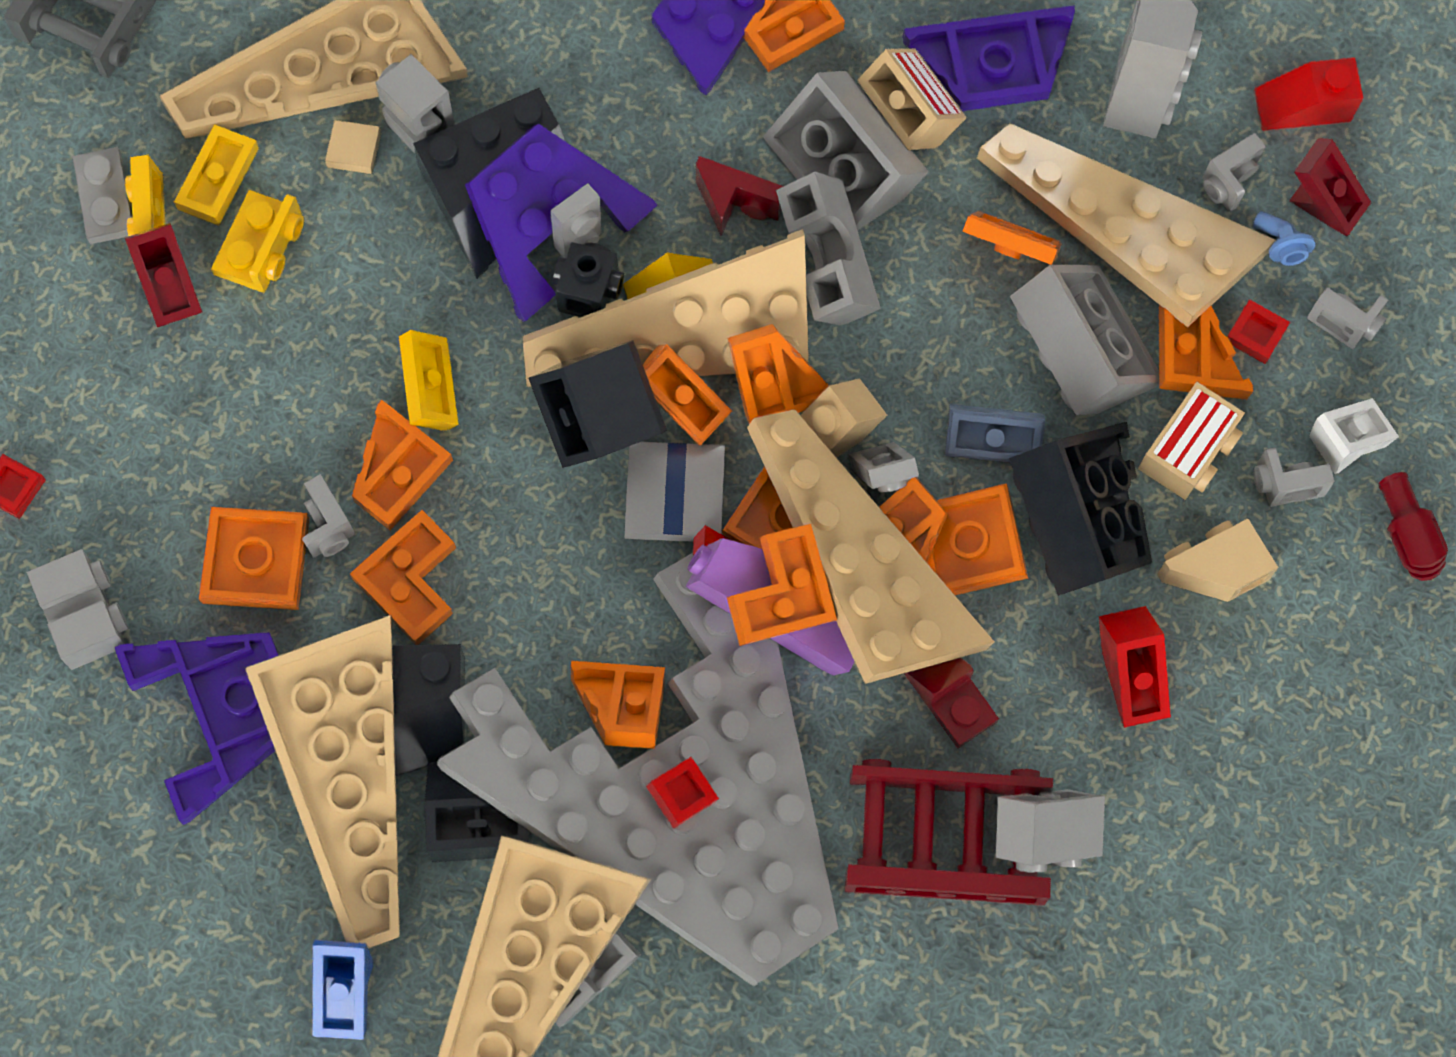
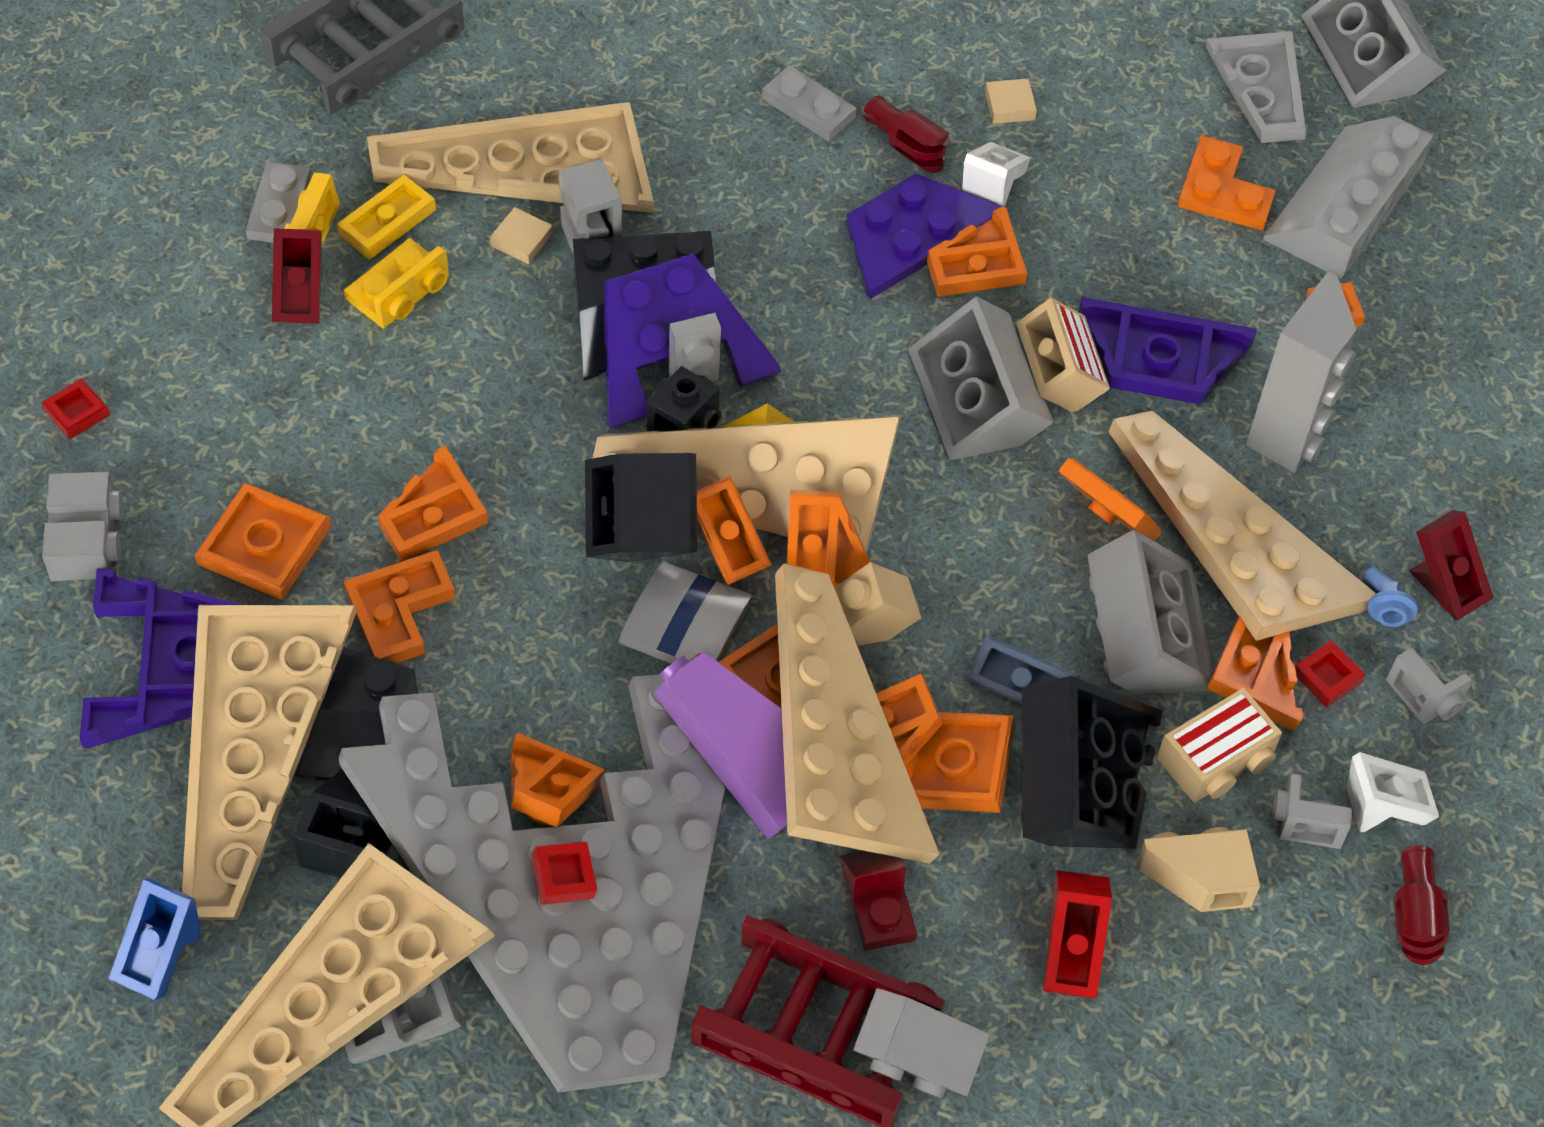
camera: 20 degrees right, 15 degrees down
(325, 510) = (347, 537): light grey bracket -> none
(428, 380) = (496, 445): yellow plate -> none
(726, 187) = (857, 377): dark red slope -> none
(797, 593) = (750, 732): orange plate -> none
(842, 282) = (926, 489): light grey arch -> none
(884, 466) = (896, 659): light grey plate -> none
(1230, 169) = (1357, 517): light grey bracket -> none
(1311, 95) = (1465, 480): red slope -> none

